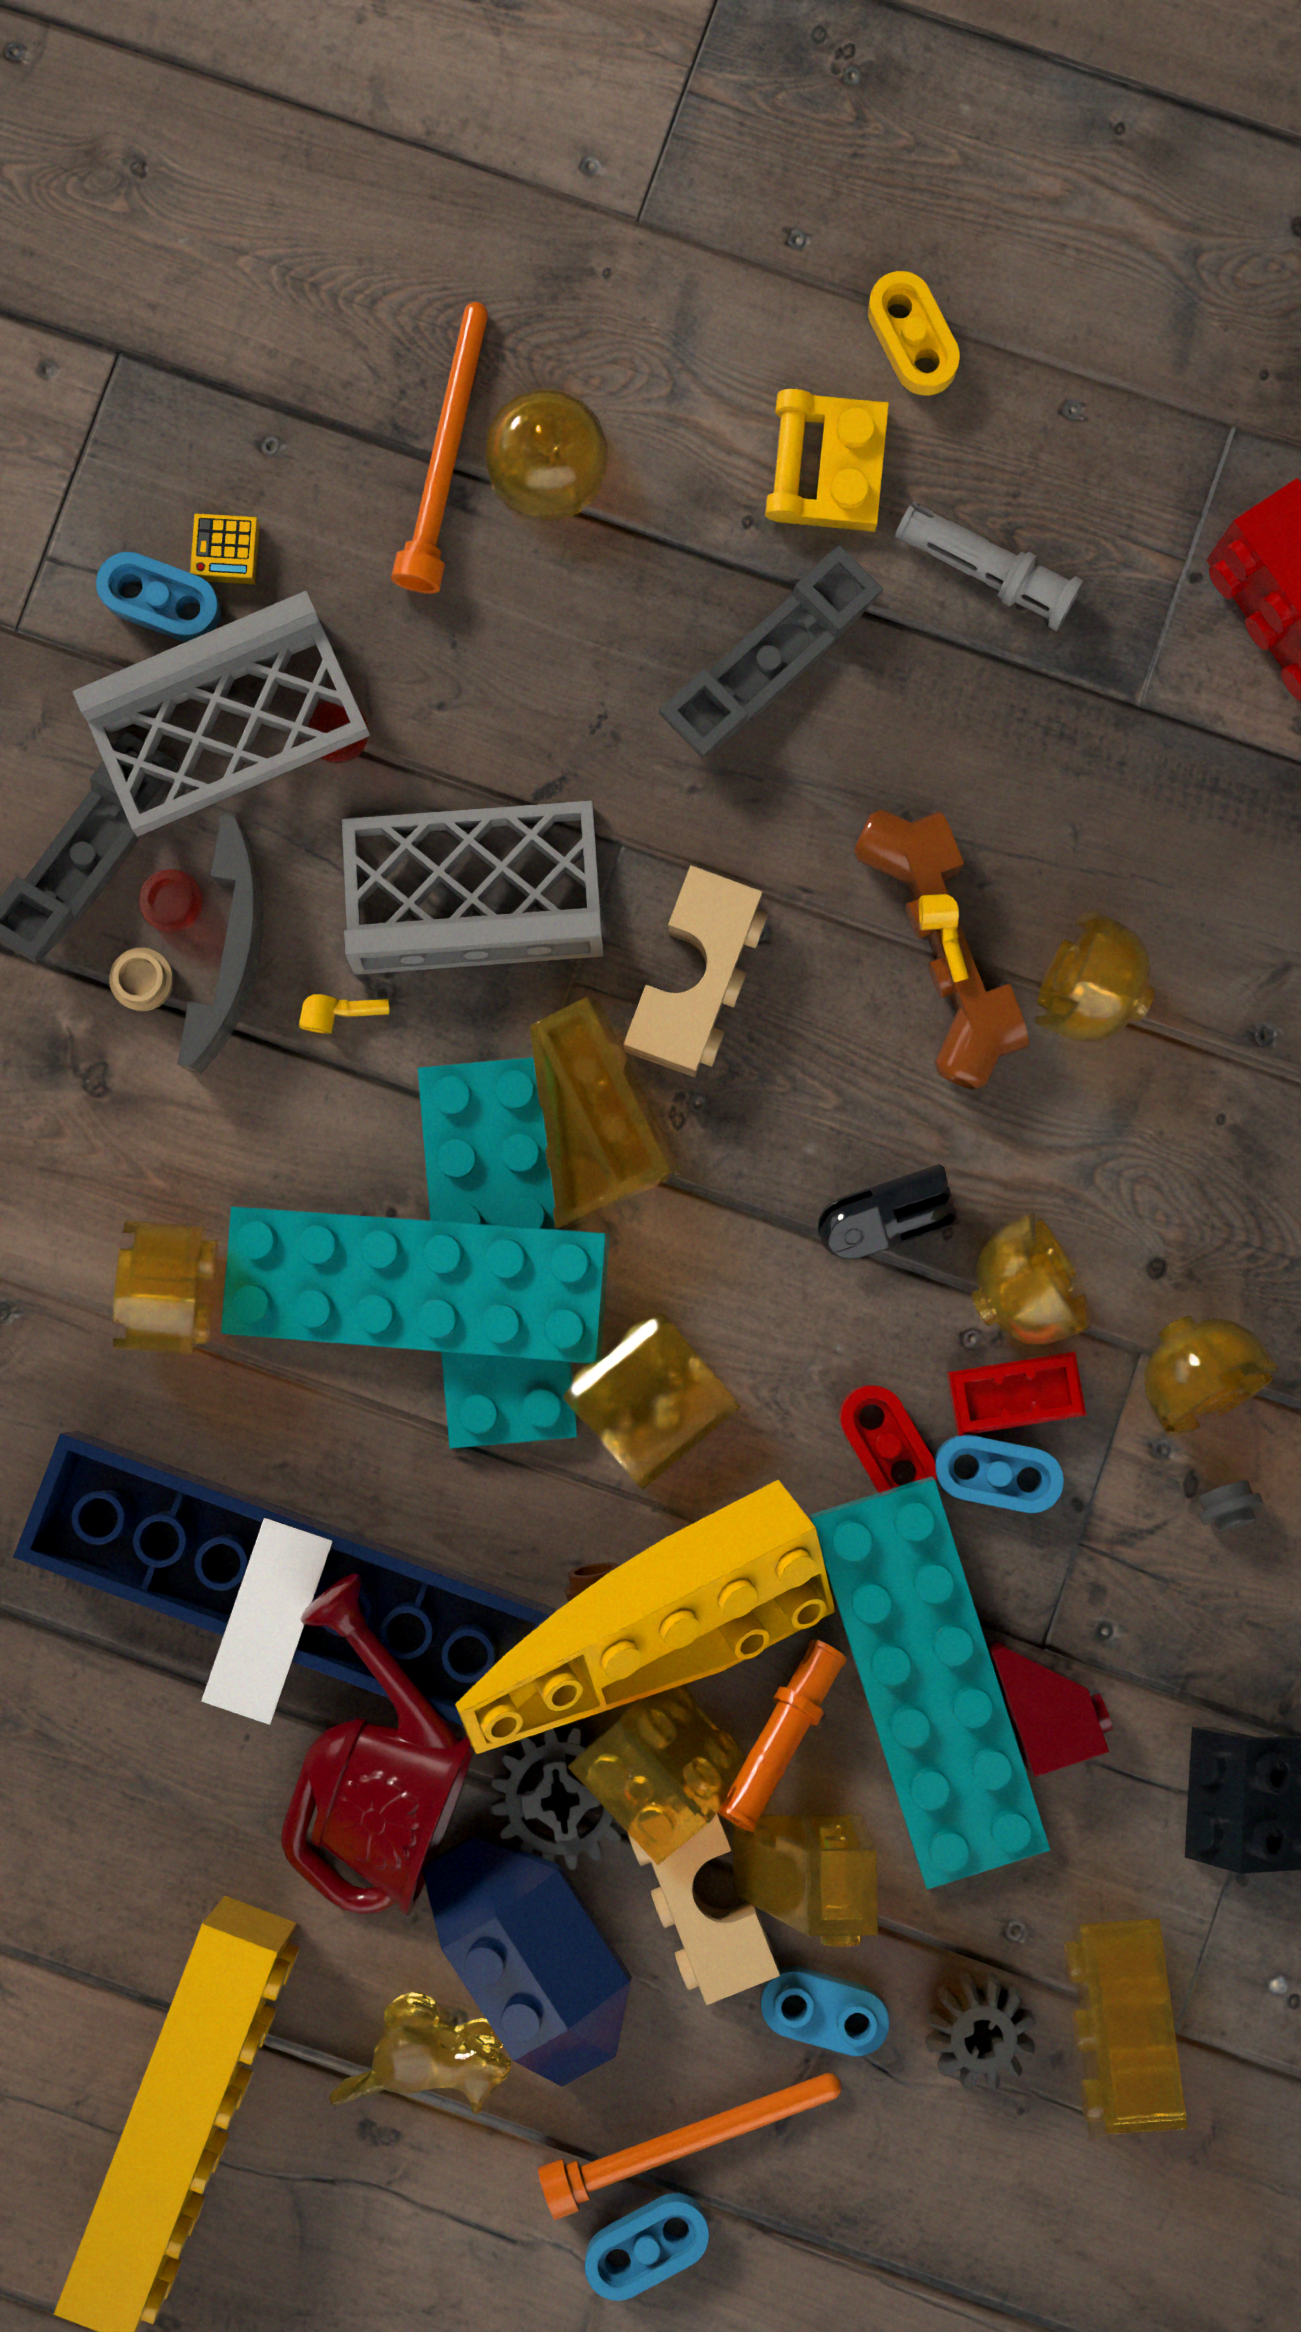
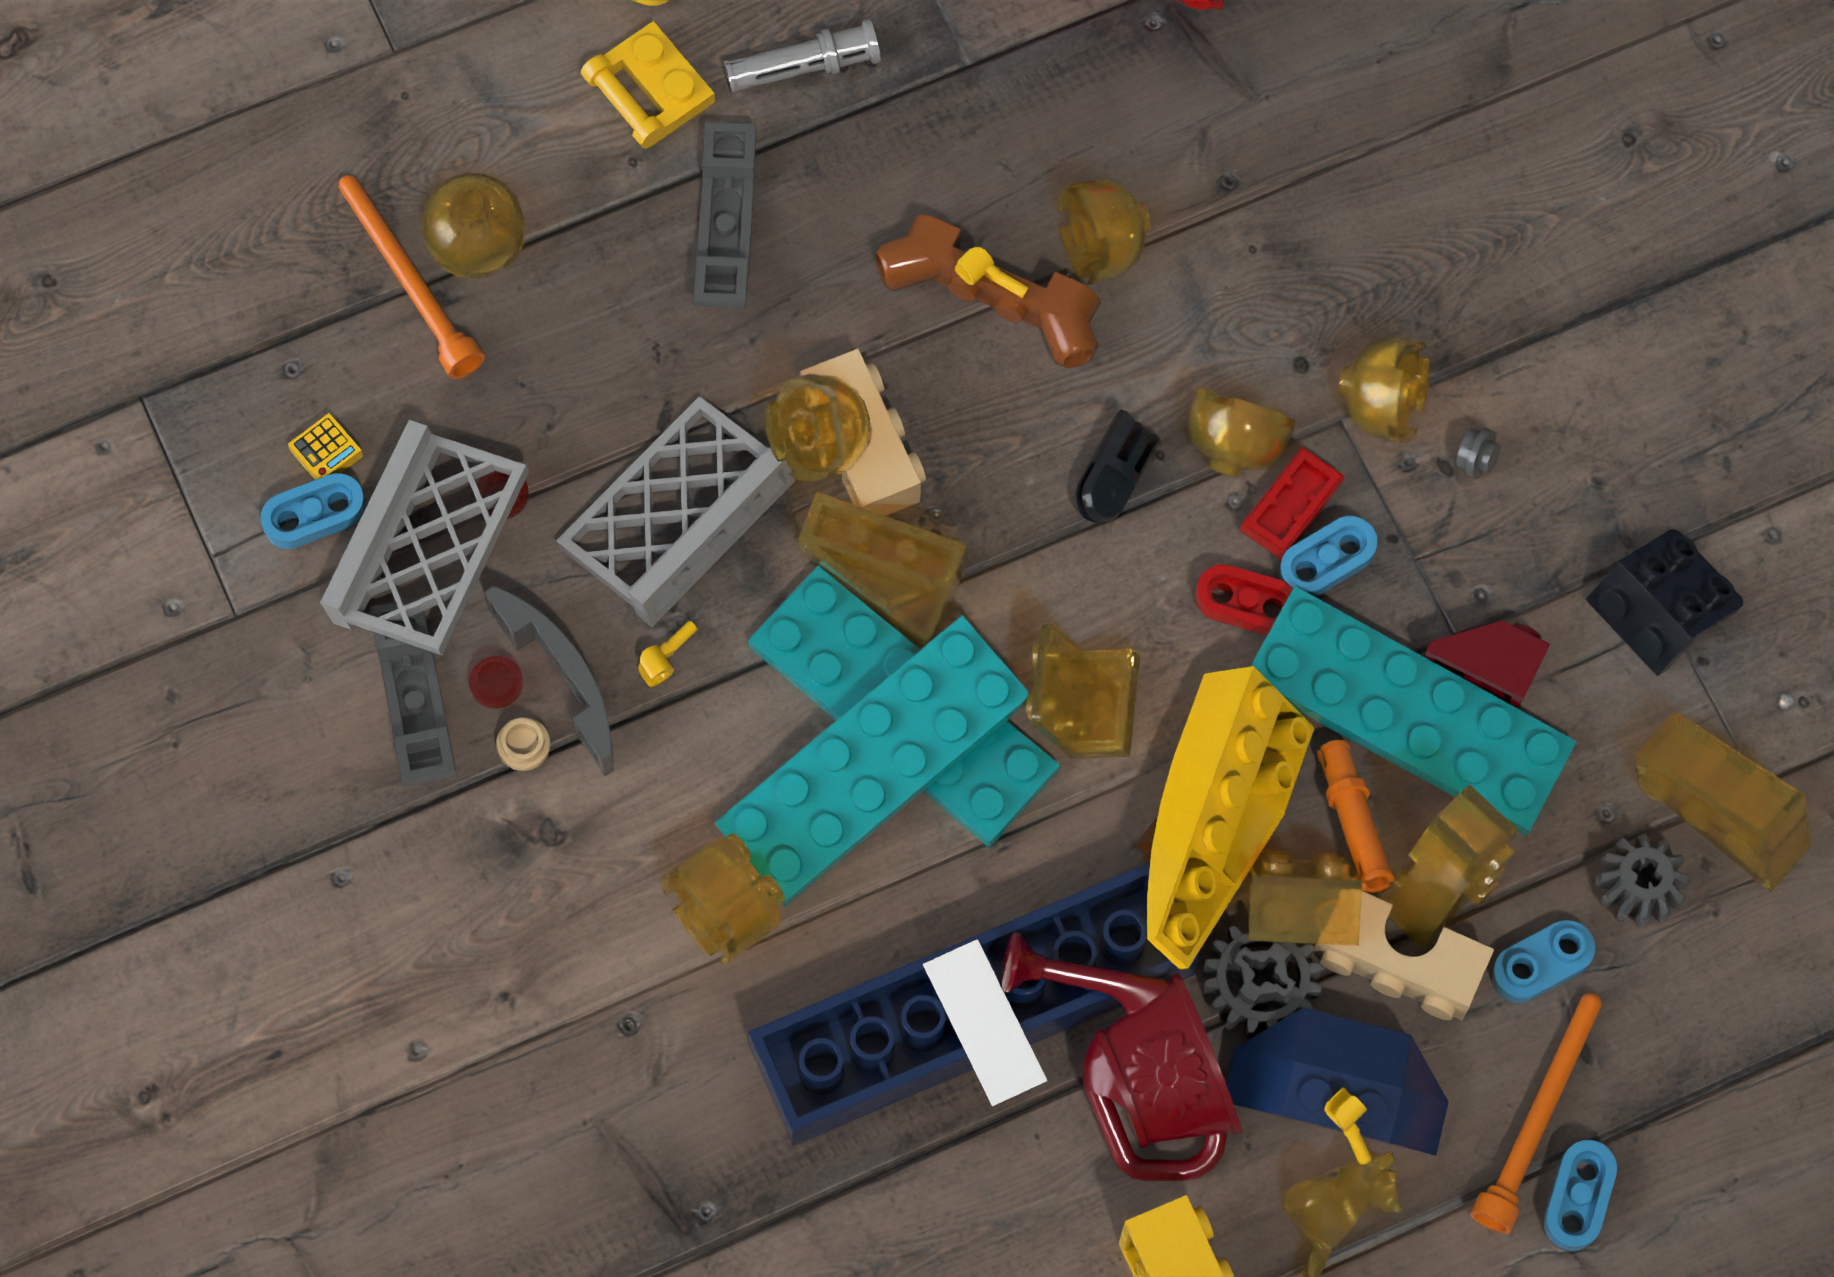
camera: 50 degrees left, 15 degrees down
(492, 2012) = (1344, 1112): none -> yellow hand
(645, 939) = (818, 426): none -> clear yellow cylinder

